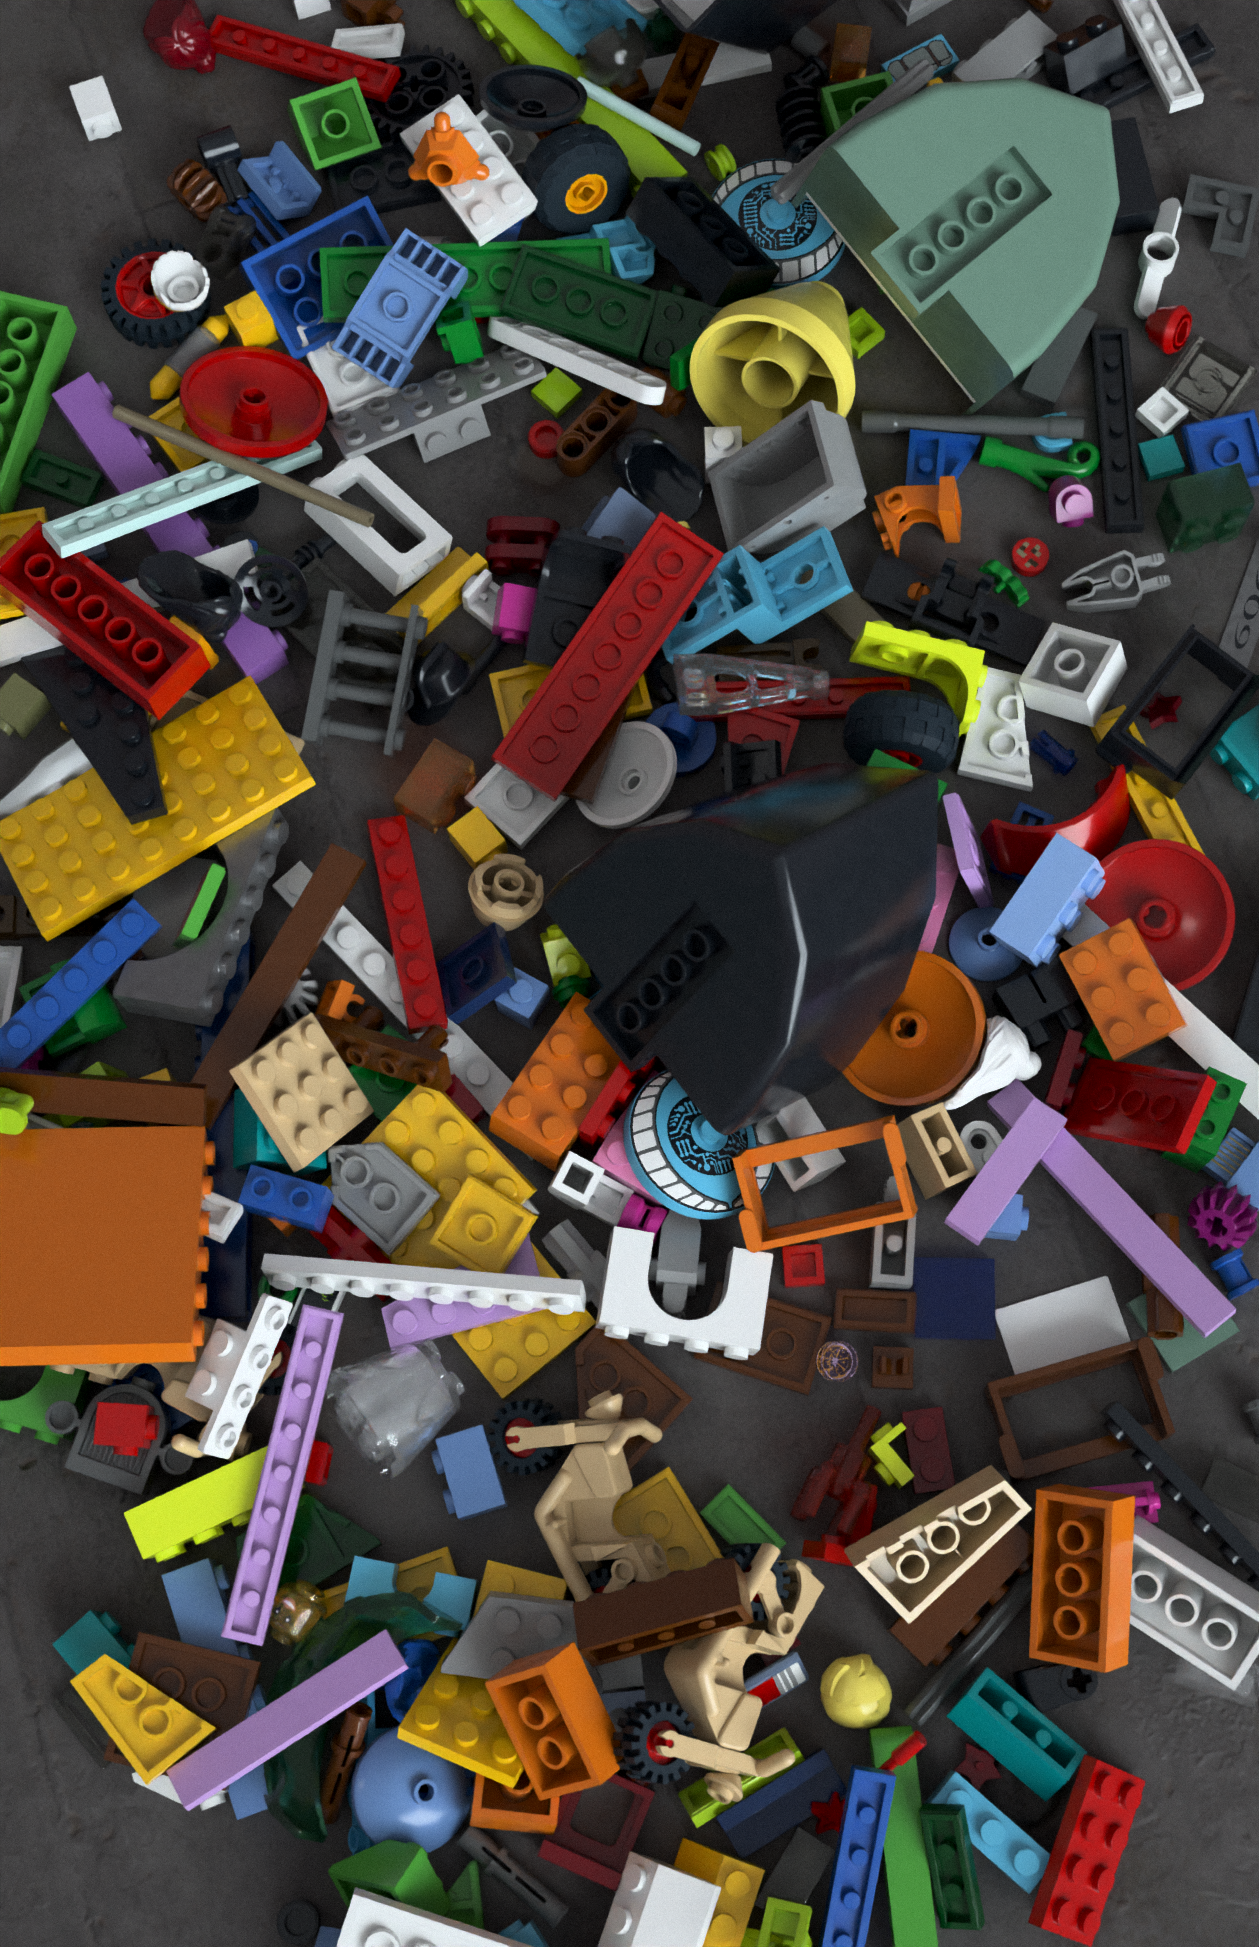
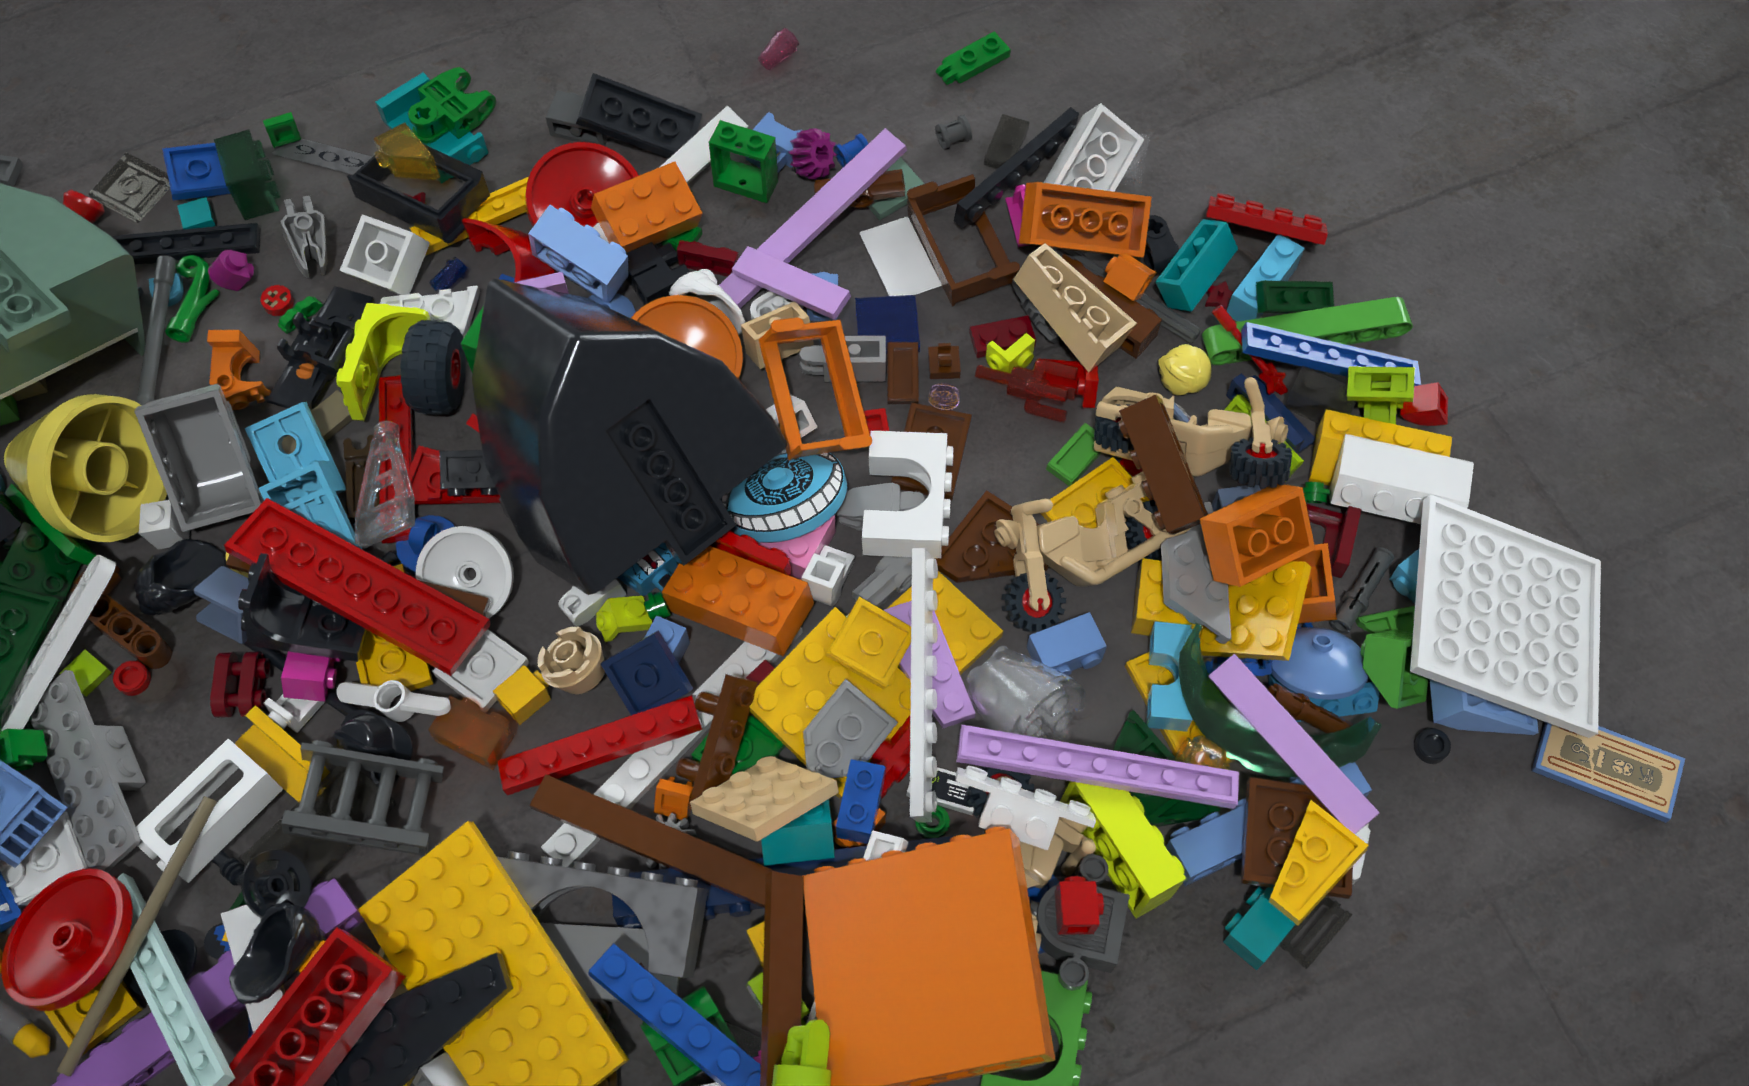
camera: 100 degrees left, 10 degrees down
(199, 906) = (592, 916): bright green tile -> none
(482, 690) = (383, 695): none -> white piece
(635, 1214) = (847, 535): dark pink wheel -> none
(655, 1836) = (1315, 492): none -> green plate
(937, 455) = (182, 367): blue wing -> none
(994, 1628) = (1128, 276): none -> orange brick
(1138, 1105) = (737, 192): red plate -> none
(1161, 413) = (157, 213): white plate -> none
(1213, 688) = (405, 154): none -> clear yellow slope

